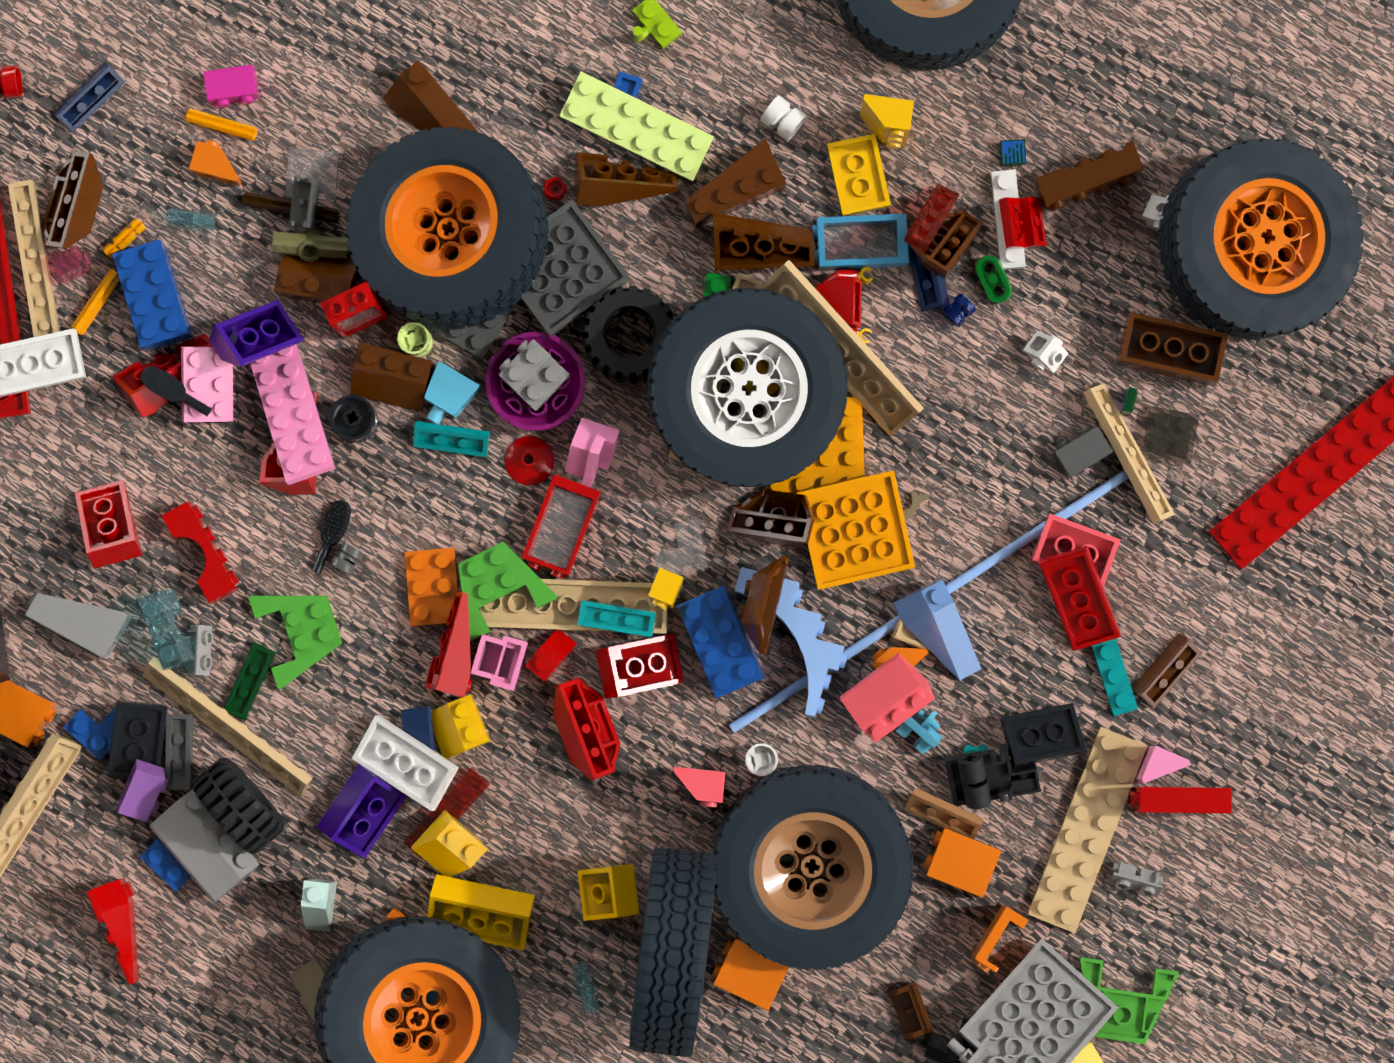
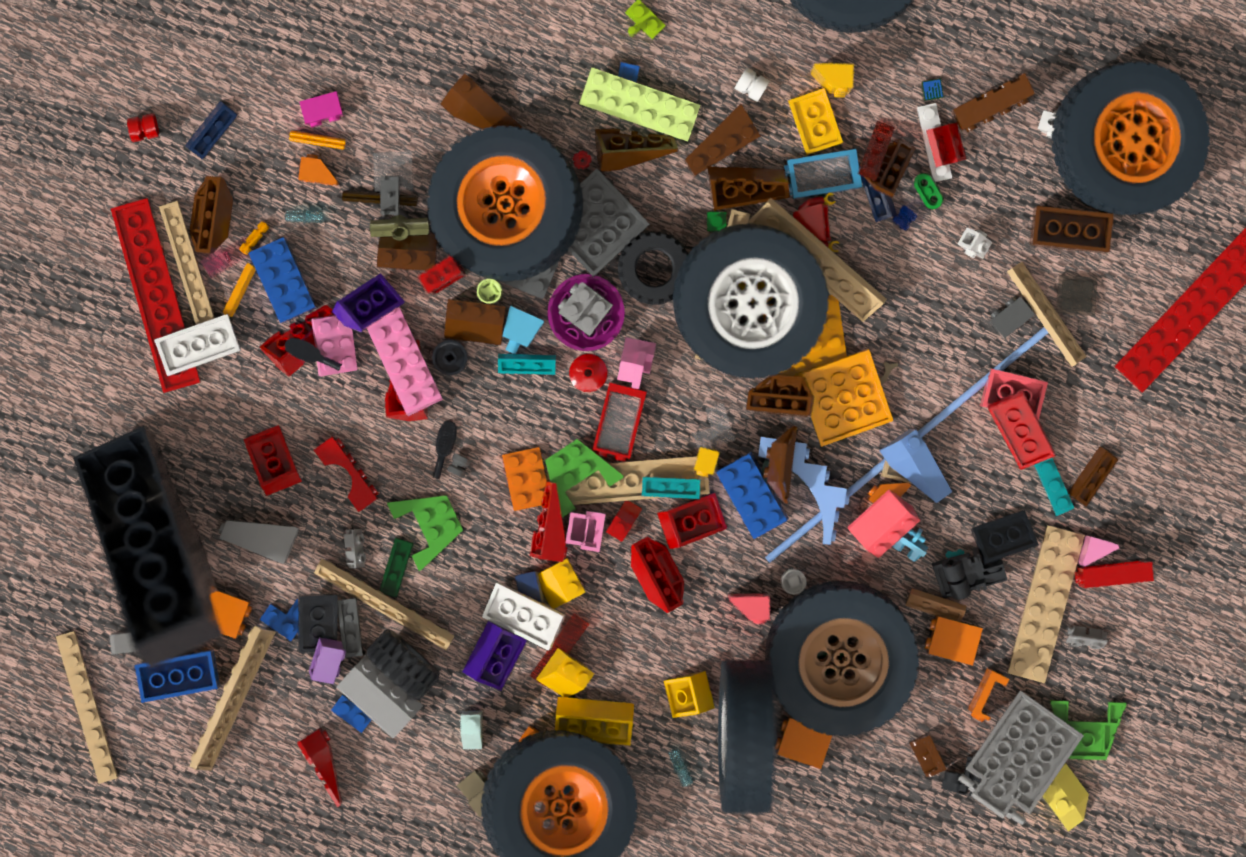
camera: 10 degrees left, 5 degrees up
(171, 646) = (322, 526): clear light blue arch -> none
(1129, 401) = (1042, 273): dark green tile -> none

